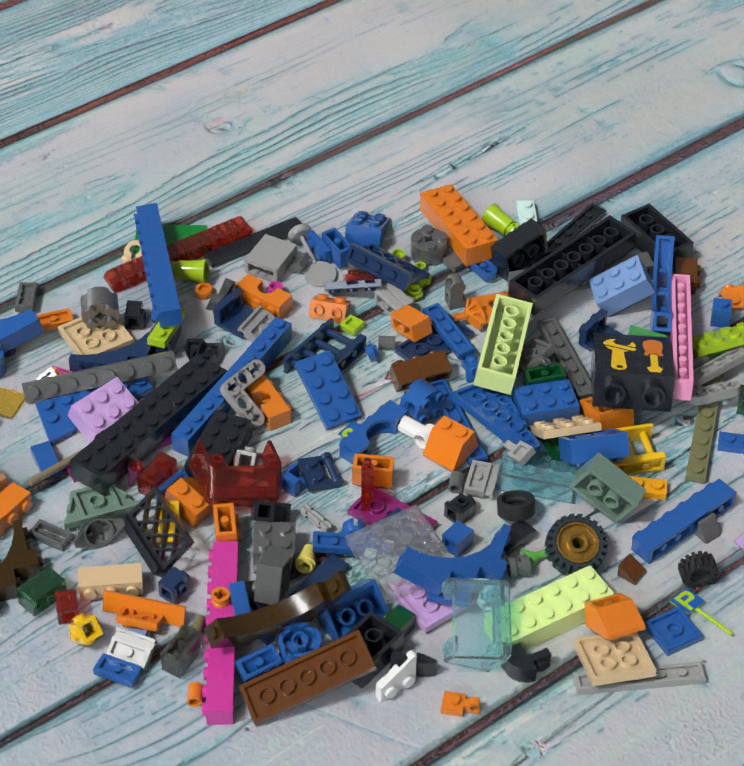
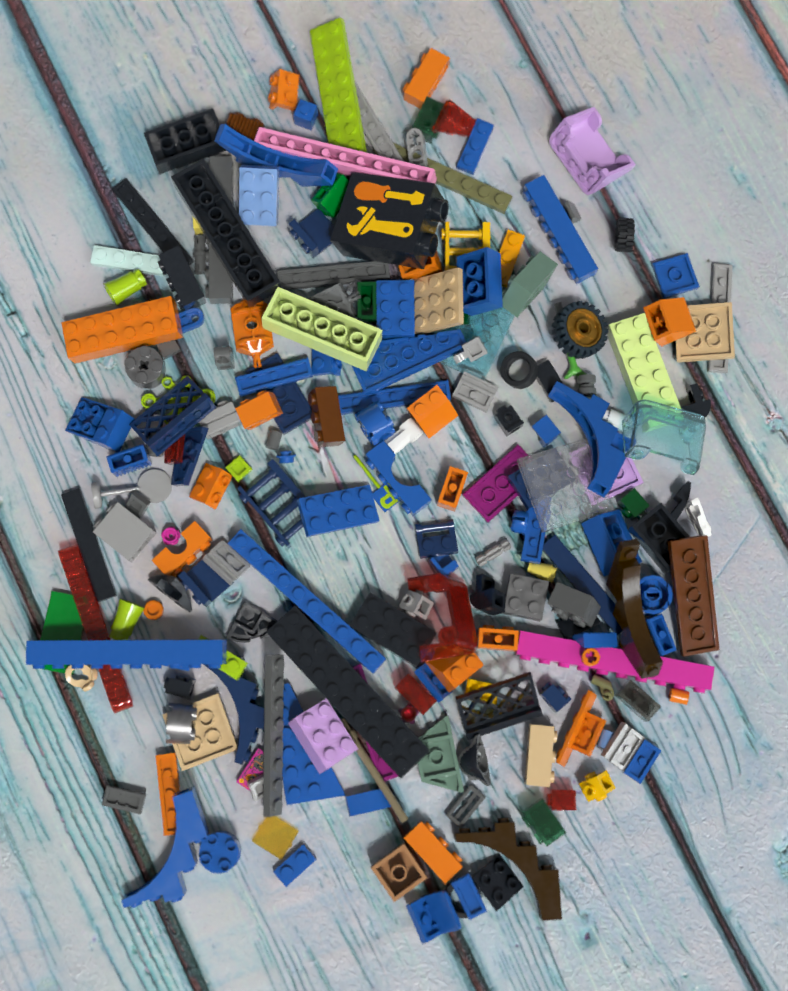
camera: 80 degrees left, 35 degrees up
(238, 392) = (331, 598): light grey beam -> none
(275, 409) = (318, 574): orange arch -> none
(318, 247) = (111, 483): blue plate -> none
(367, 483) = (481, 500): clear red plate -> none
(456, 482) = (473, 416): dark grey hinge -> none
(456, 704) = (722, 474): orange plate -> none
(631, 569) = (604, 291): reddish brown slope -> none
(691, 602) = (645, 253): piece -> none

